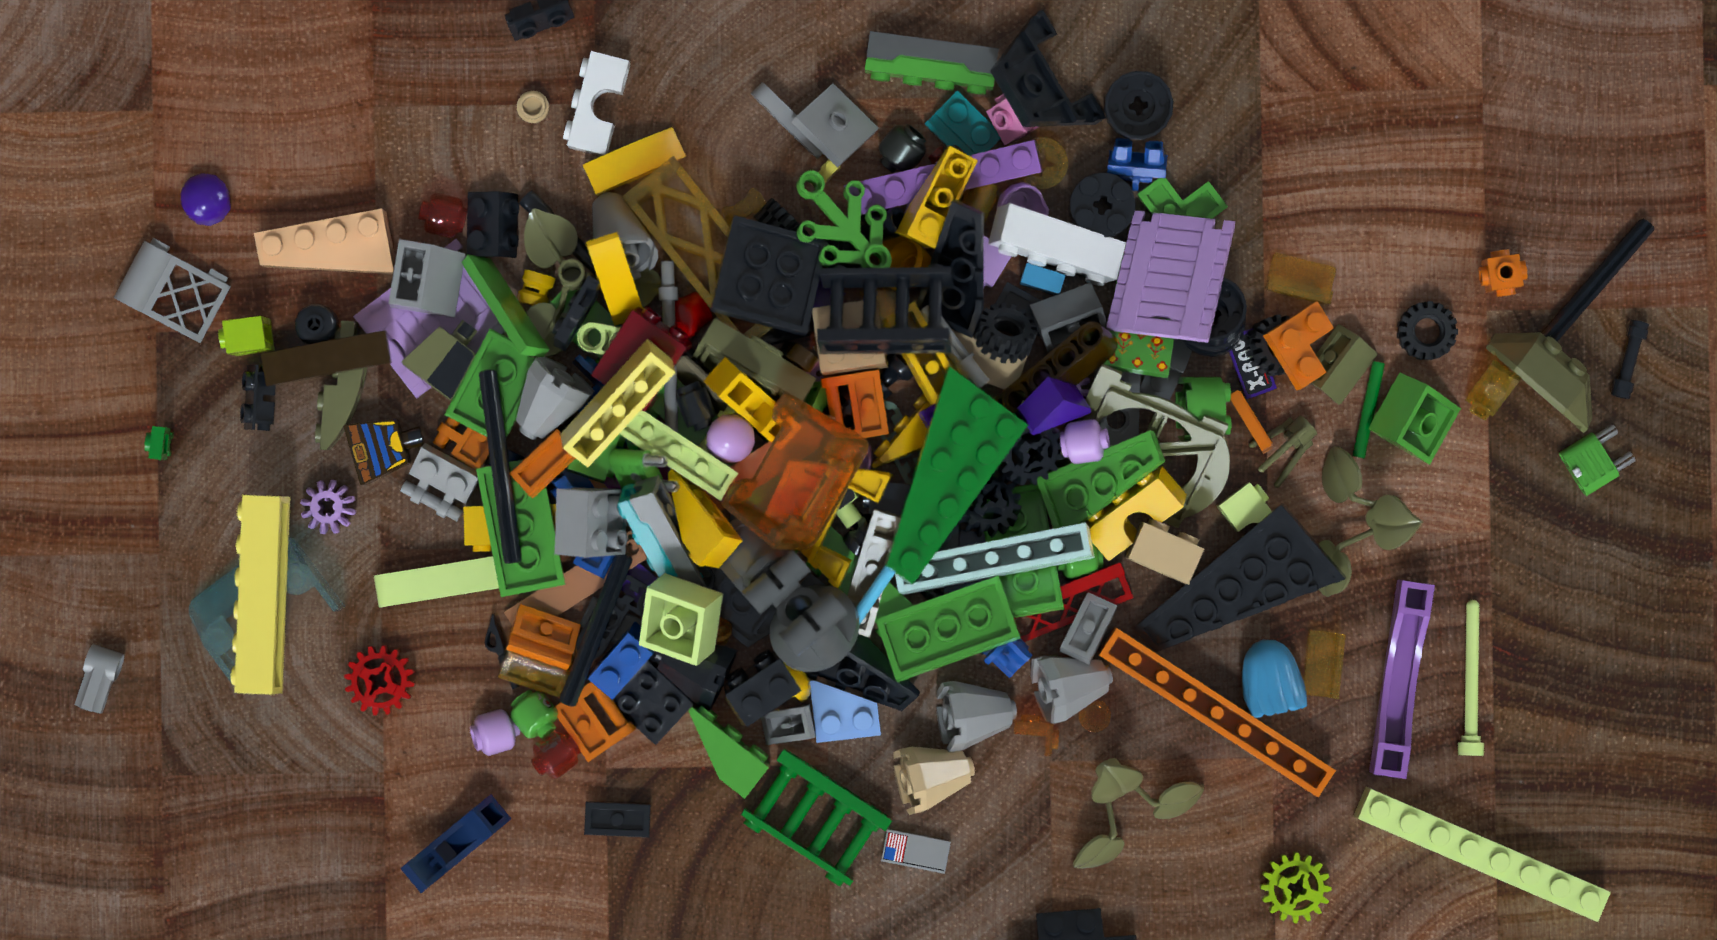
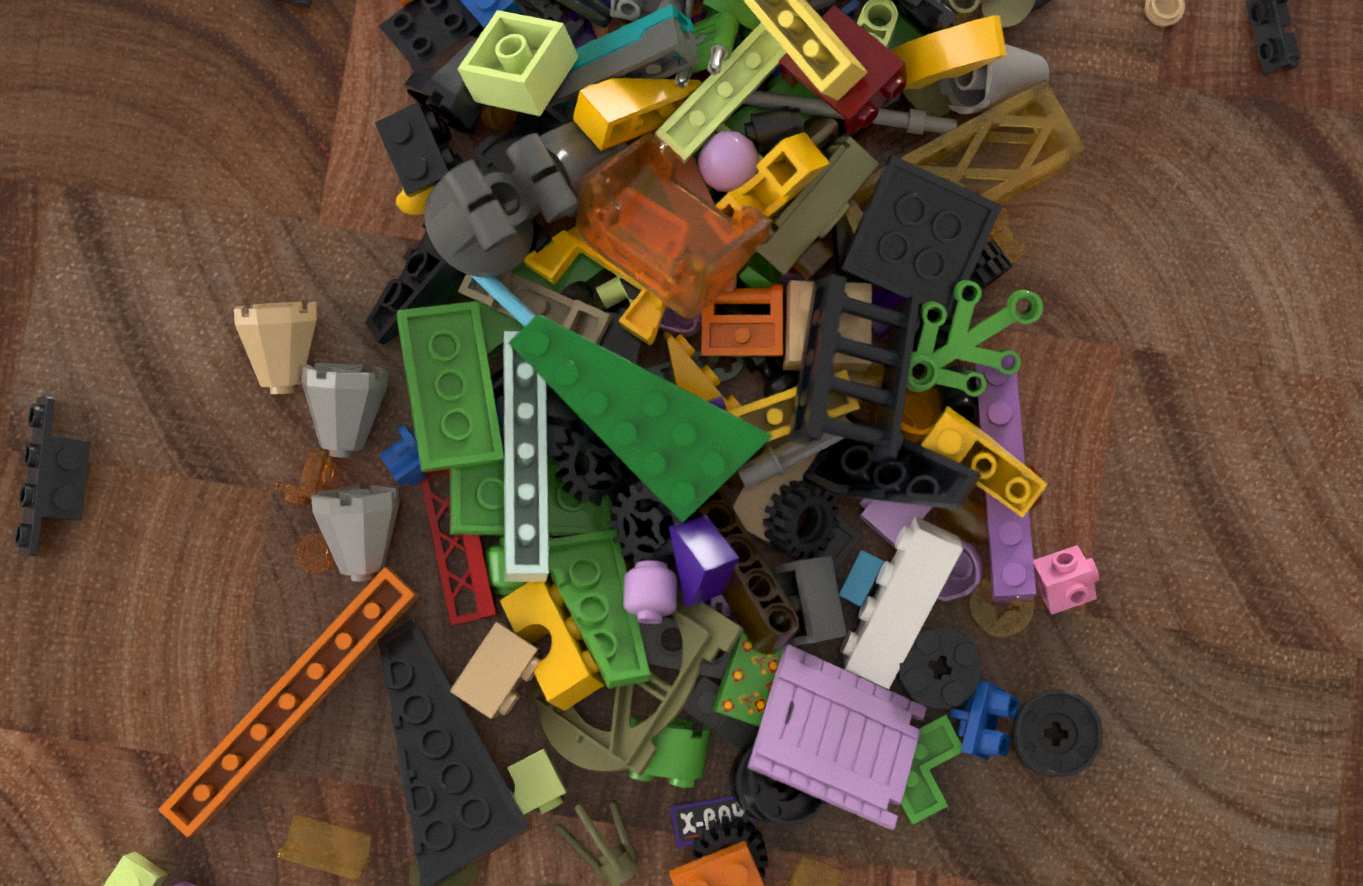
camera: 100 degrees right, 5 degrees down
(601, 75) = (1189, 88): white arch -> none
(633, 161) = (1081, 98): yellow slope -> none
(691, 314) = (883, 141): red piece -> none
(731, 758) = (348, 101): bright green slope -> none
(783, 115) = (1102, 306): light grey beam -> none
(788, 725) = (372, 186): light grey slope -> none
(828, 170) = (1033, 343): light yellow tile -> none
(835, 125) = (1088, 358): light grey plate -> none
(842, 714) = (373, 250): light blue wing -> none
(845, 802) = (294, 206): green fence -> none
(902, 148) = (1047, 435): pearl dark grey head -> none
(915, 851) = (194, 310): light grey tile -> none
(930, 61) = (1148, 489): piece -> none
(963, 125) = (1063, 515): teal plate -> none
(1032, 85) = (1101, 605): black wing -> none
(1088, 628) = (421, 561): light grey plate -> none
(1114, 782) = (224, 559): olive plant -> none
(1251, 421) = (641, 807): orange tile -> none
(1272, 680) = (315, 778): dark azure hair -> none
(1300, 873) = (73, 772): lime gear -> none

